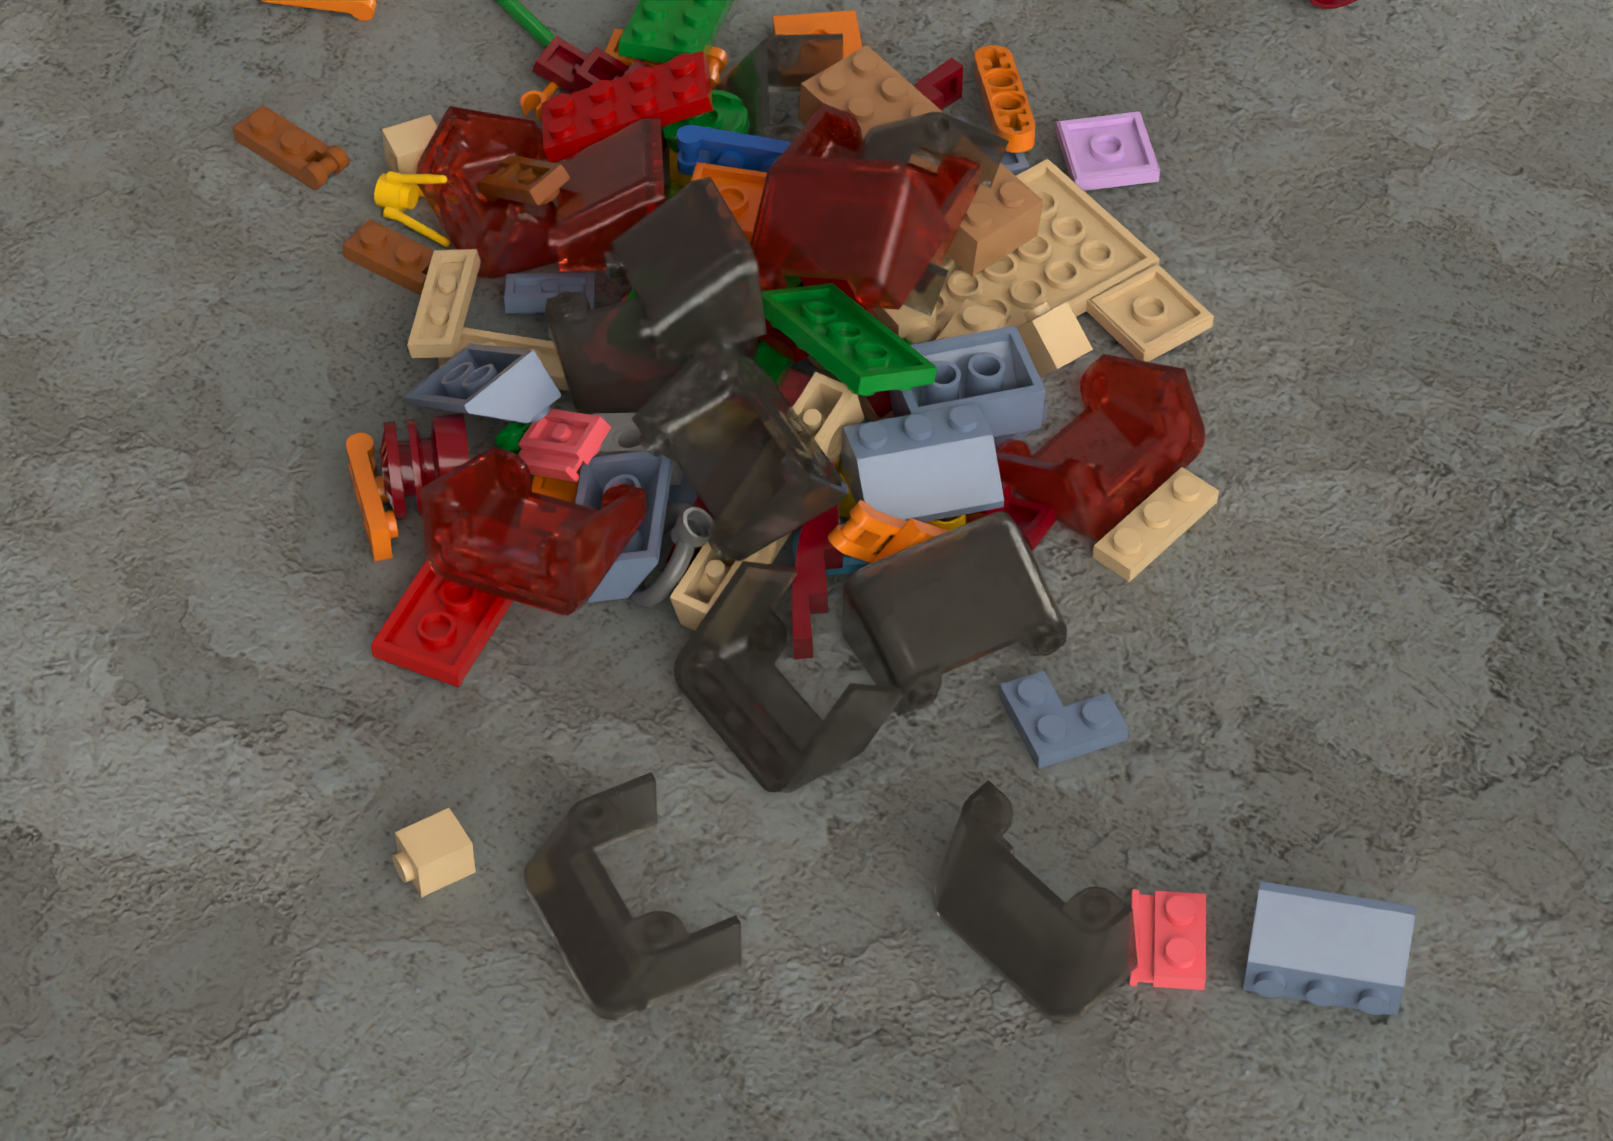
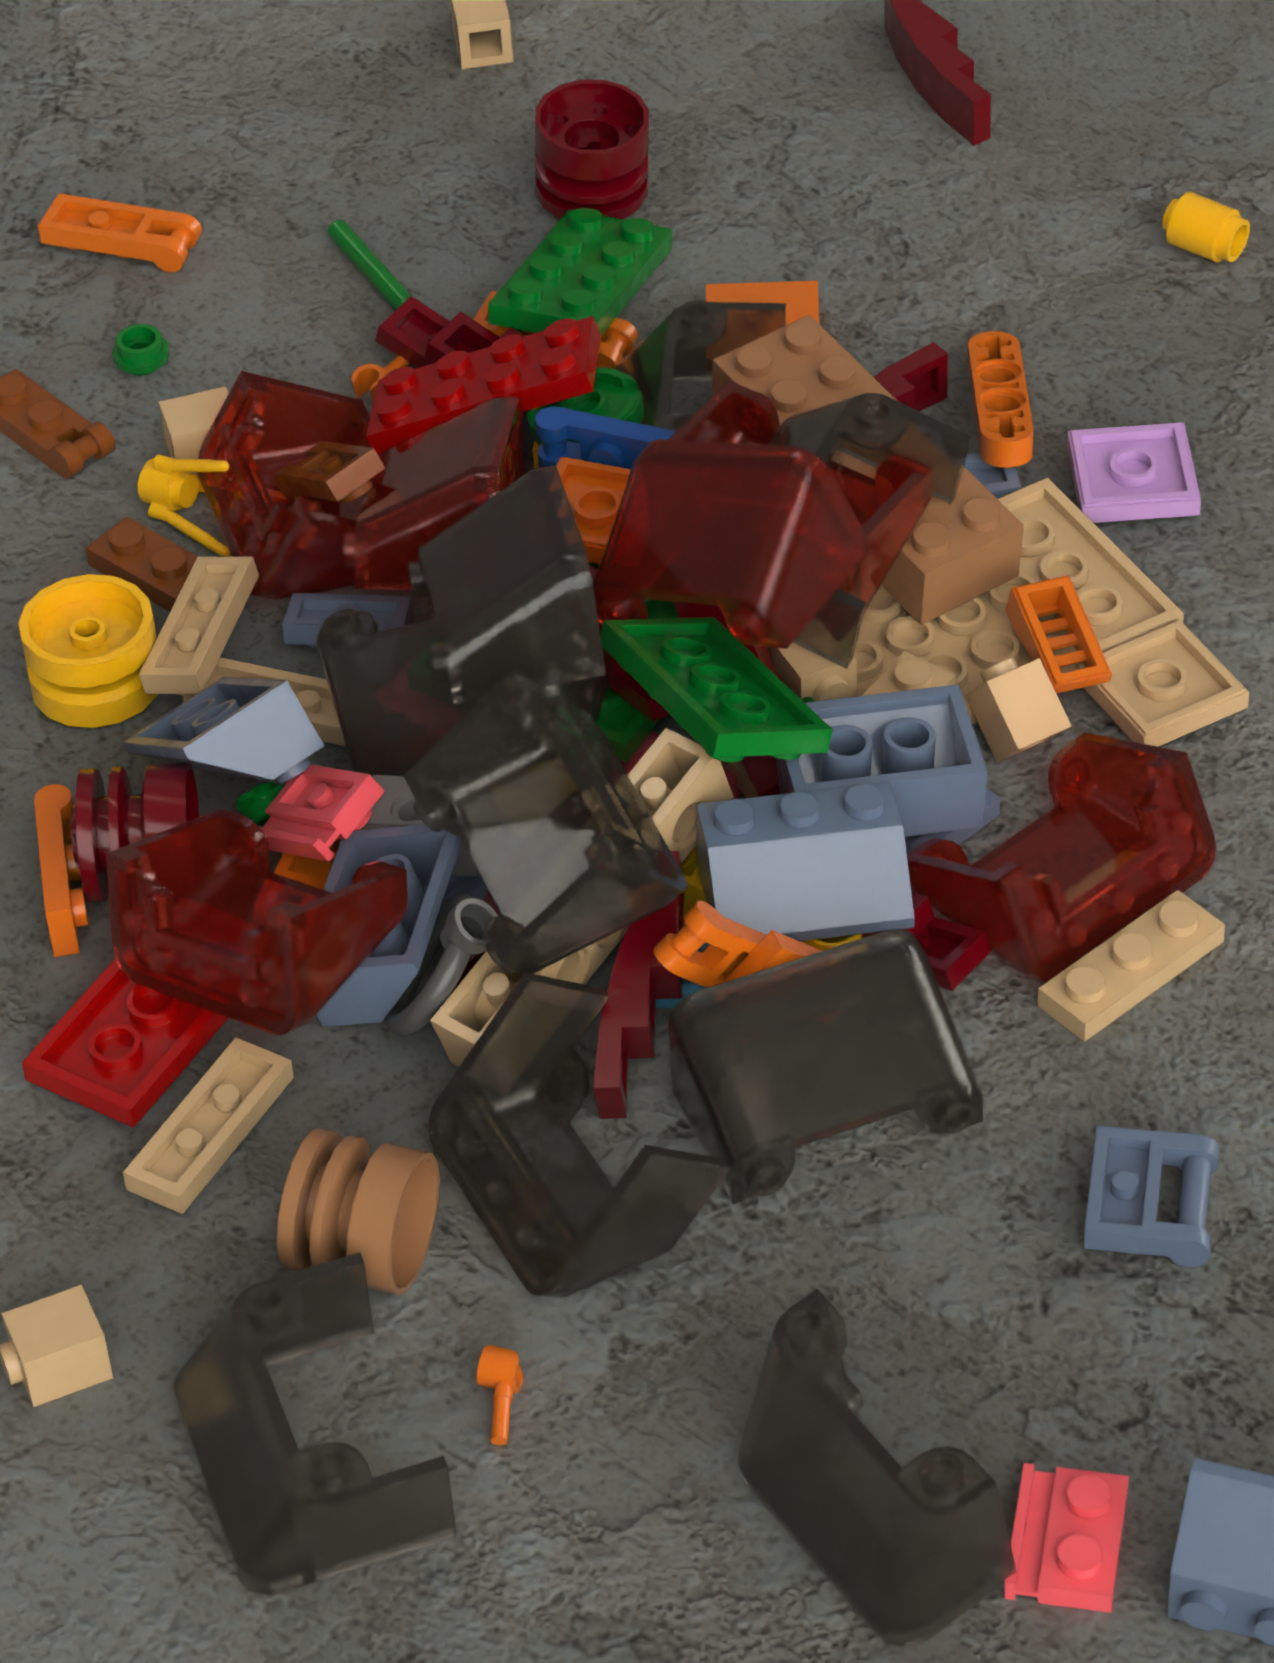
camera: 10 degrees right, 5 degrees down
(354, 85) = (140, 349): none -> green plate
(364, 326) = (87, 649): none -> yellow wheel
(514, 682) = (208, 1125): none -> tan plate
(631, 739) = (354, 1202): none -> medium nougat wheel
(755, 849) = (501, 1371): none -> orange hand
(1059, 731) = (955, 1238): sand blue plate -> none
(1073, 253) = (1060, 598): none -> orange slope
(1177, 691) = (1127, 1194): none -> sand blue plate

